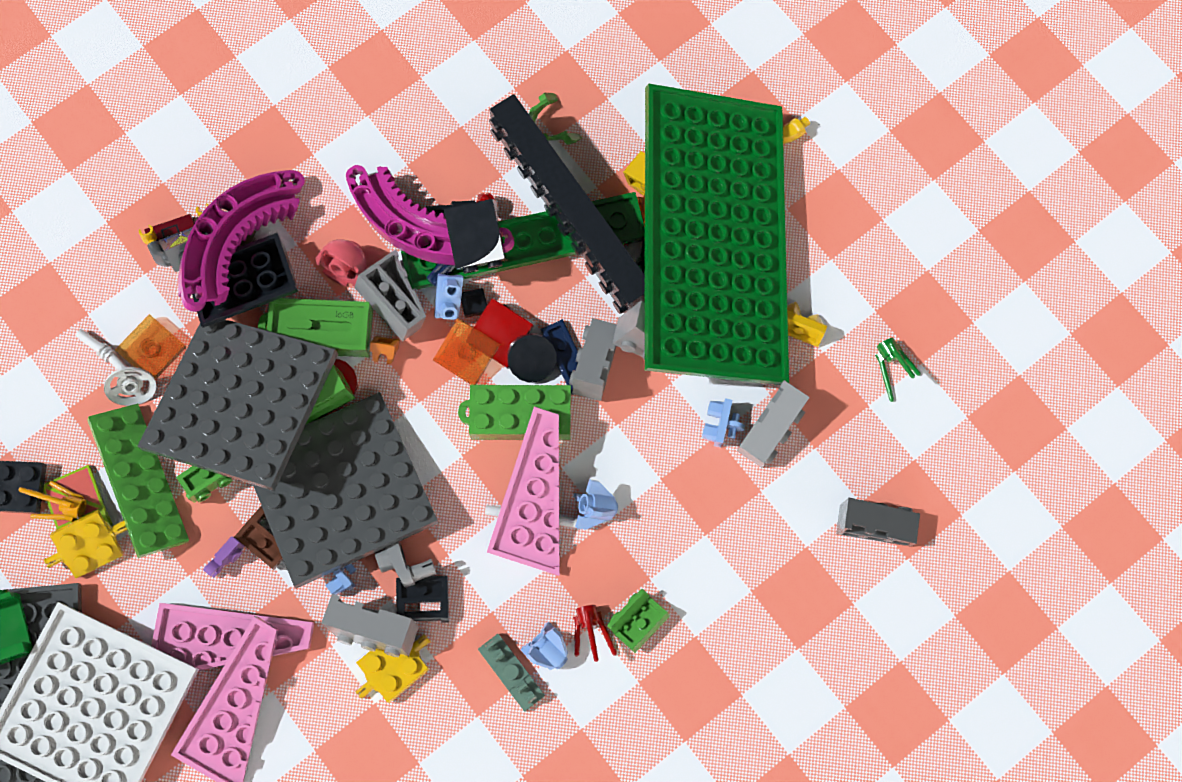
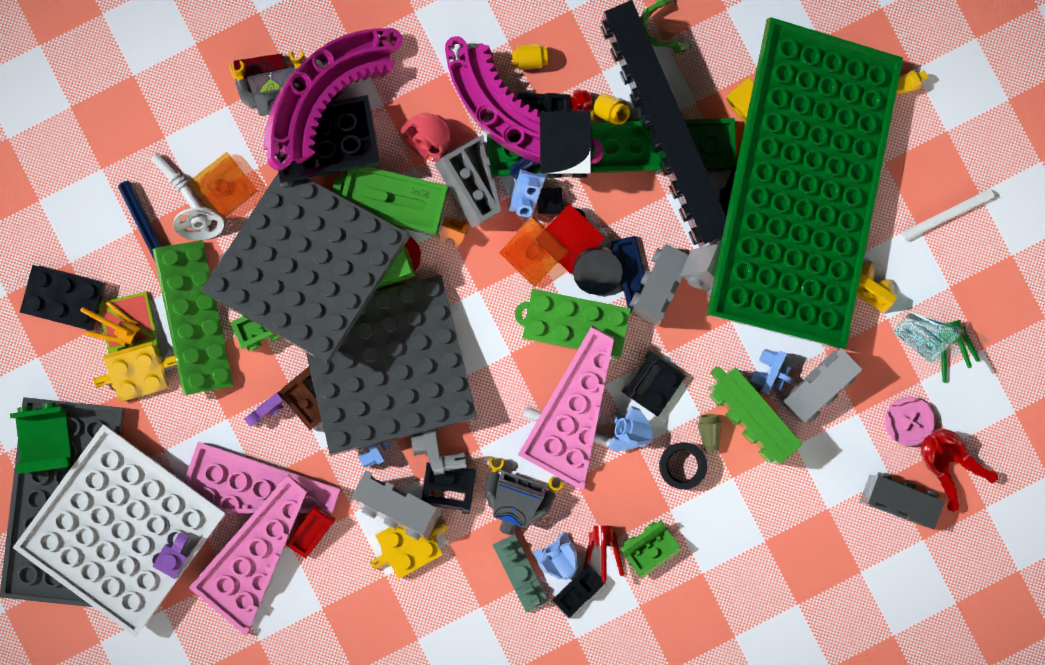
camera: 10 degrees right, 10 degrees up
(70, 390) = (139, 215): none -> dark blue axle
(146, 725) = (171, 557): none -> medium lavender plate
(288, 671) = (310, 531): none -> red tile
(429, 172) = (530, 56): none -> yellow brick
(493, 596) = (517, 499): none -> dark grey torso
(516, 204) = (611, 109): none -> yellow brick
(573, 679) = (578, 591): none -> black slope
(616, 461) = (661, 387): none -> black plate
(653, 512) = (701, 461): none -> black tyre
(673, 492) = (709, 430): none -> olive cone
(712, 465) = (753, 414): none -> bright green piece
(857, 244) = (947, 214): none -> white bar
(864, 357) = (926, 335): none -> clear light blue wing
(867, 445) = (909, 421): none -> bright pink tile
(906, 463) = (946, 447): none -> red hair

